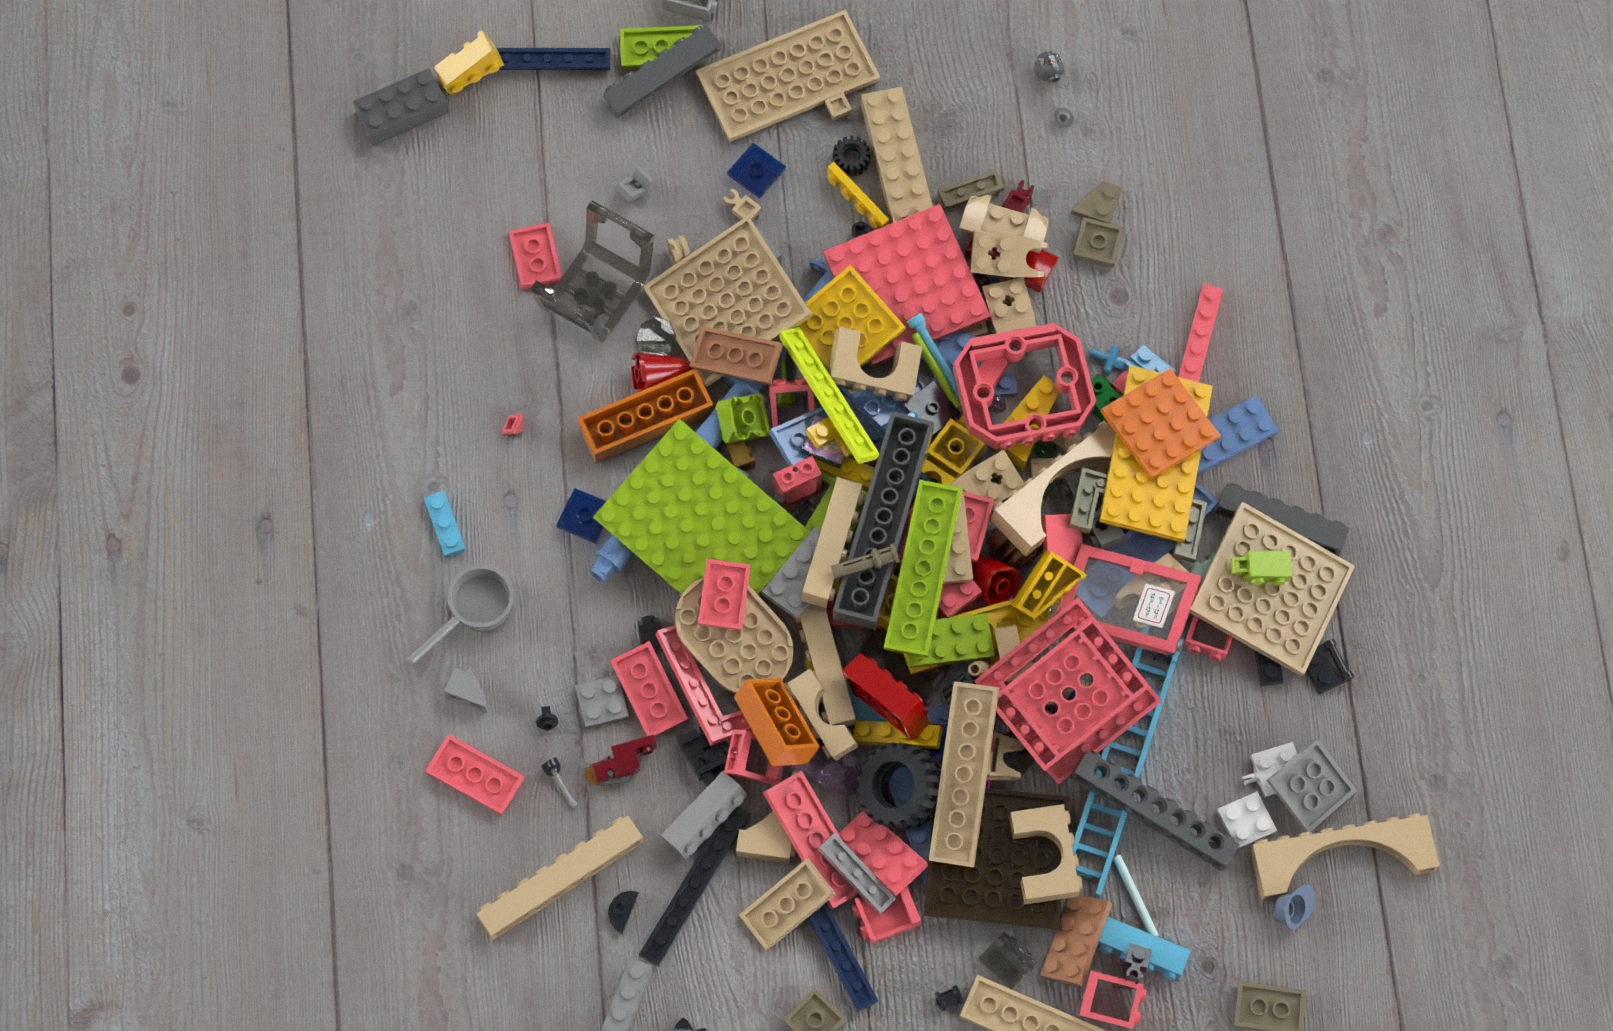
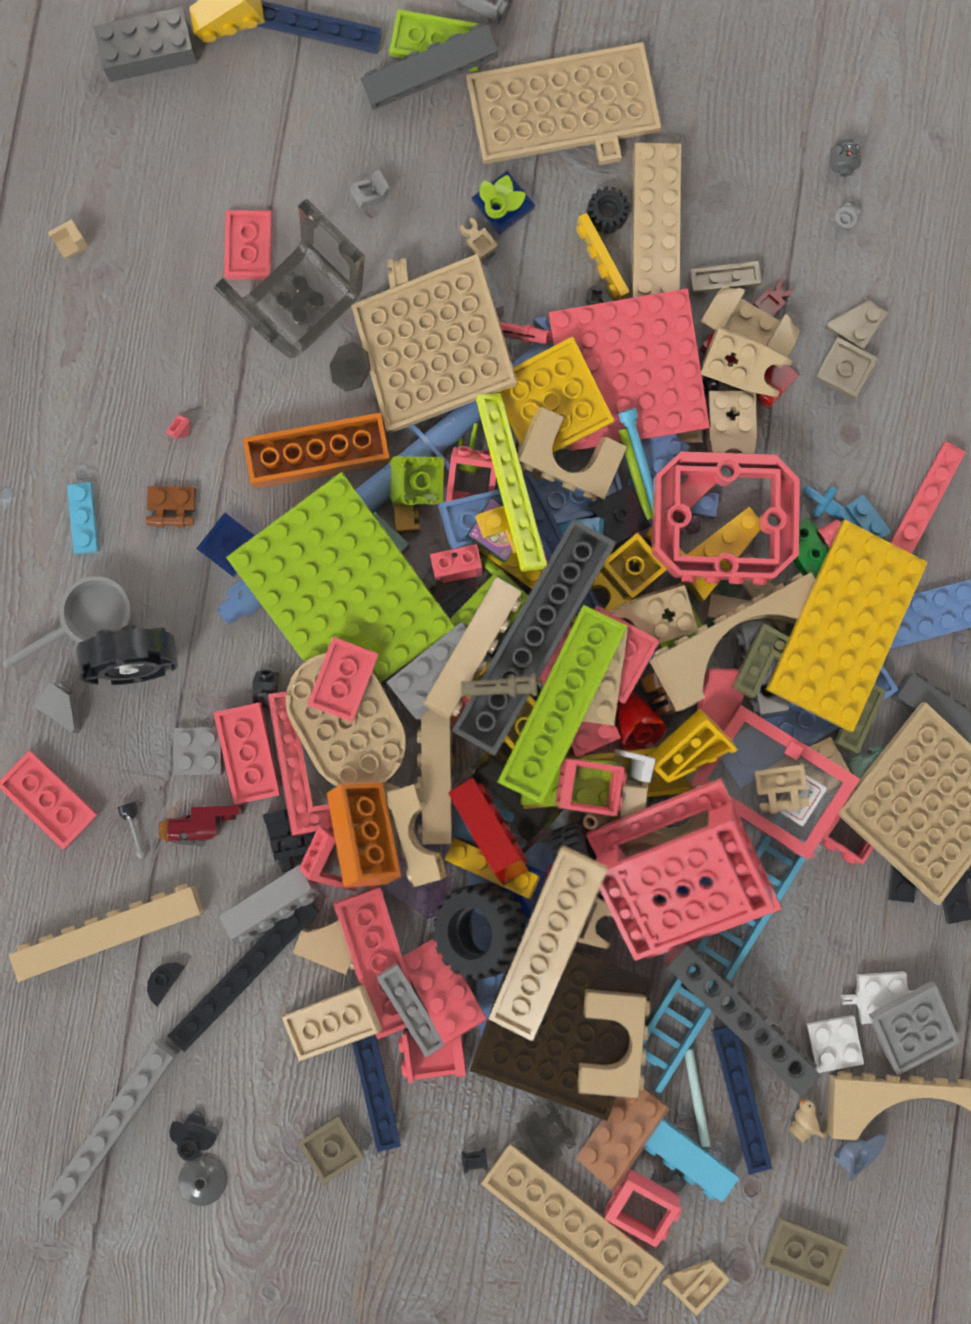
camera: 15 degrees right, 15 degrees up
(372, 287) = (68, 239): none -> tan panel
(522, 489) = (170, 499): none -> dark orange plate
(523, 623) = (126, 655): none -> black piece
(547, 720) = (135, 759): black plate -> none
(655, 369) = (340, 403): red cone -> none
(736, 355) = (425, 409): nougat plate -> none
(755, 164) = (502, 195): none -> lime plate
(809, 274) = (526, 333): none -> coral pin
(944, 634) = (566, 781): none -> coral window
(1004, 605) = (640, 766): none -> white panel
(1132, 593) = (779, 781): none -> tan plate
(1137, 961) = (680, 1180): plate -> none
(1160, 423) = (861, 595): orange plate -> none
(1176, 887) = (741, 1100): none -> dark blue plate
(1239, 893) = (805, 1122): none -> tan animal
(1263, 567) = (930, 783): lime brick -> none

